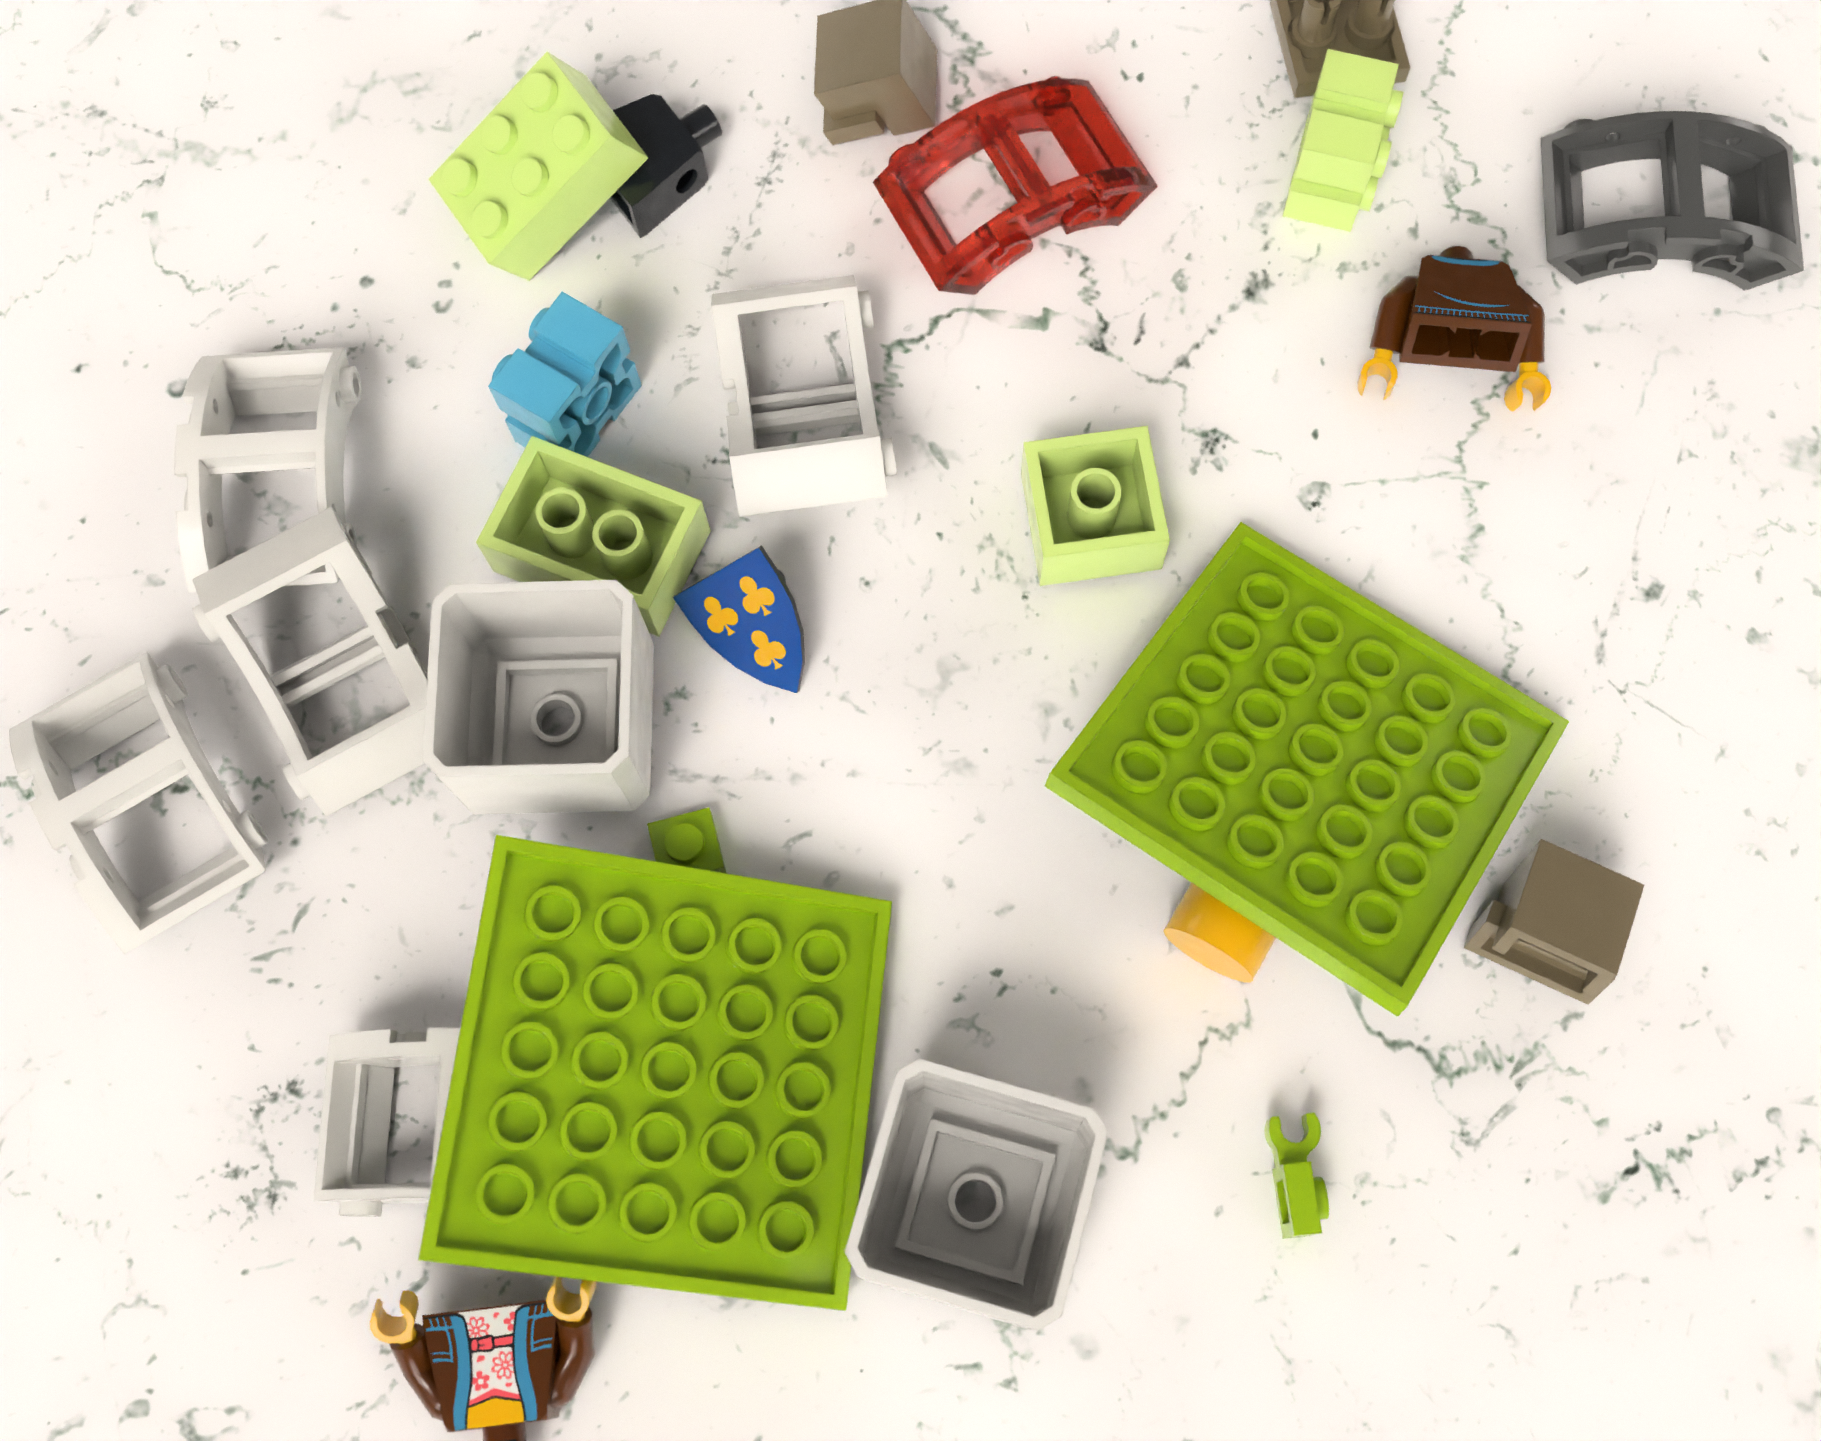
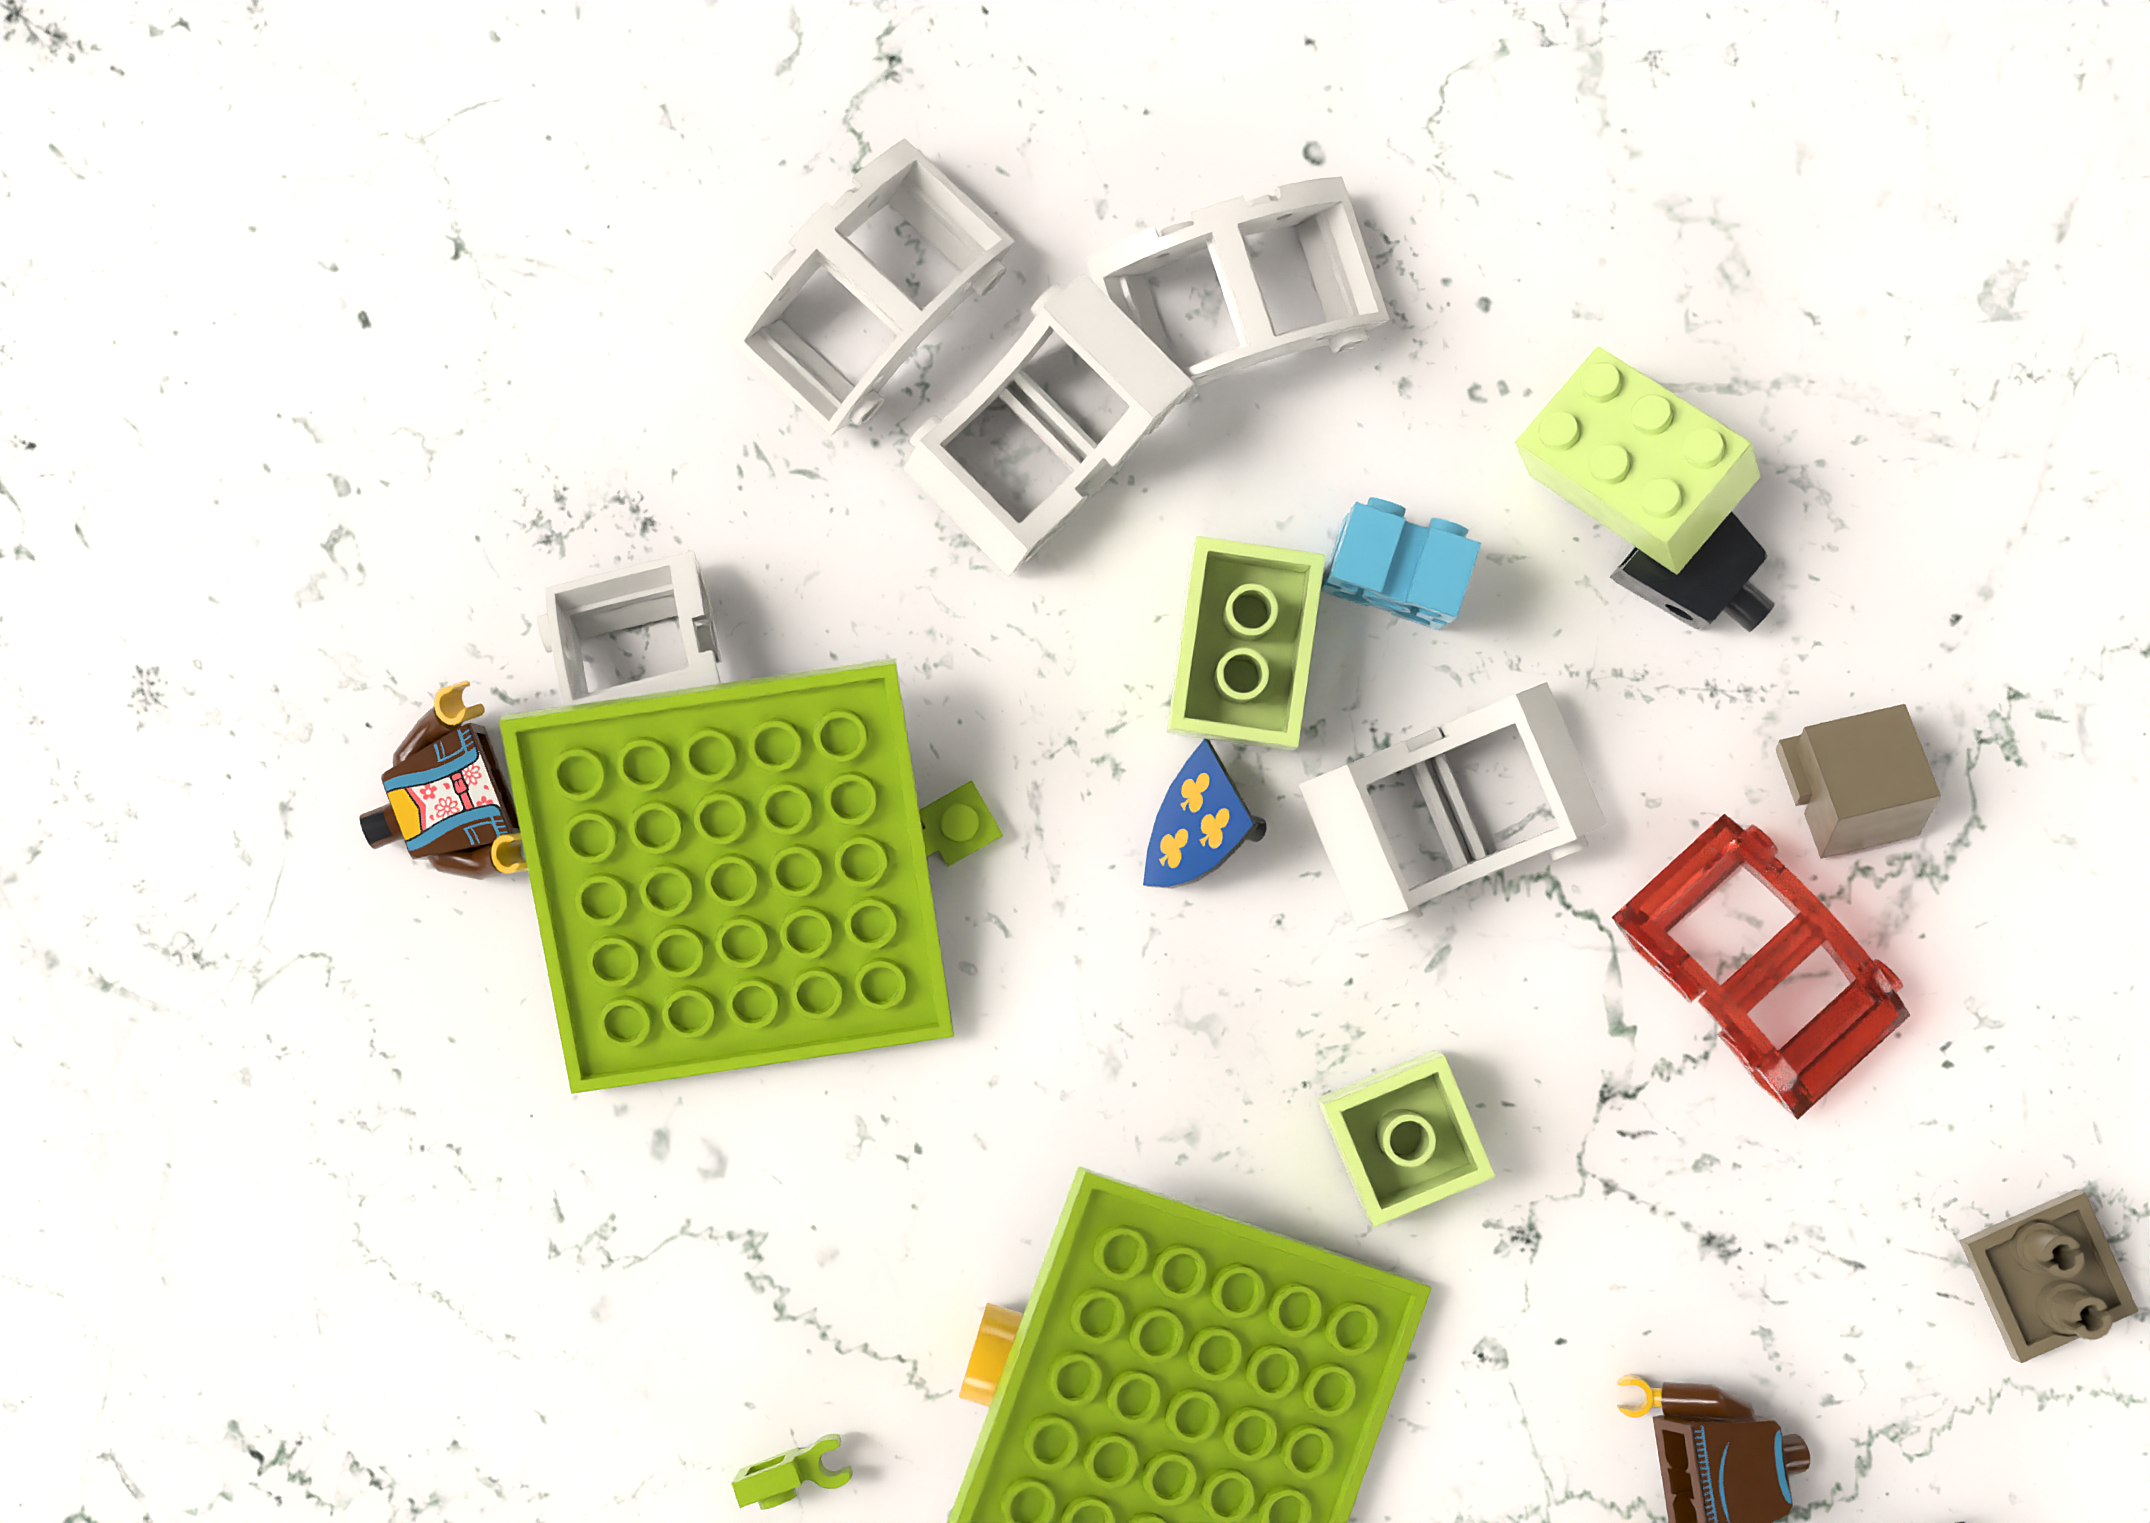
camera: 75 degrees right, 15 degrees up
(510, 658) = (1061, 596): white plate -> none
(963, 1129) = (638, 1229): white plate -> none
(1344, 140) = (1897, 1310): yellowish green brick -> none

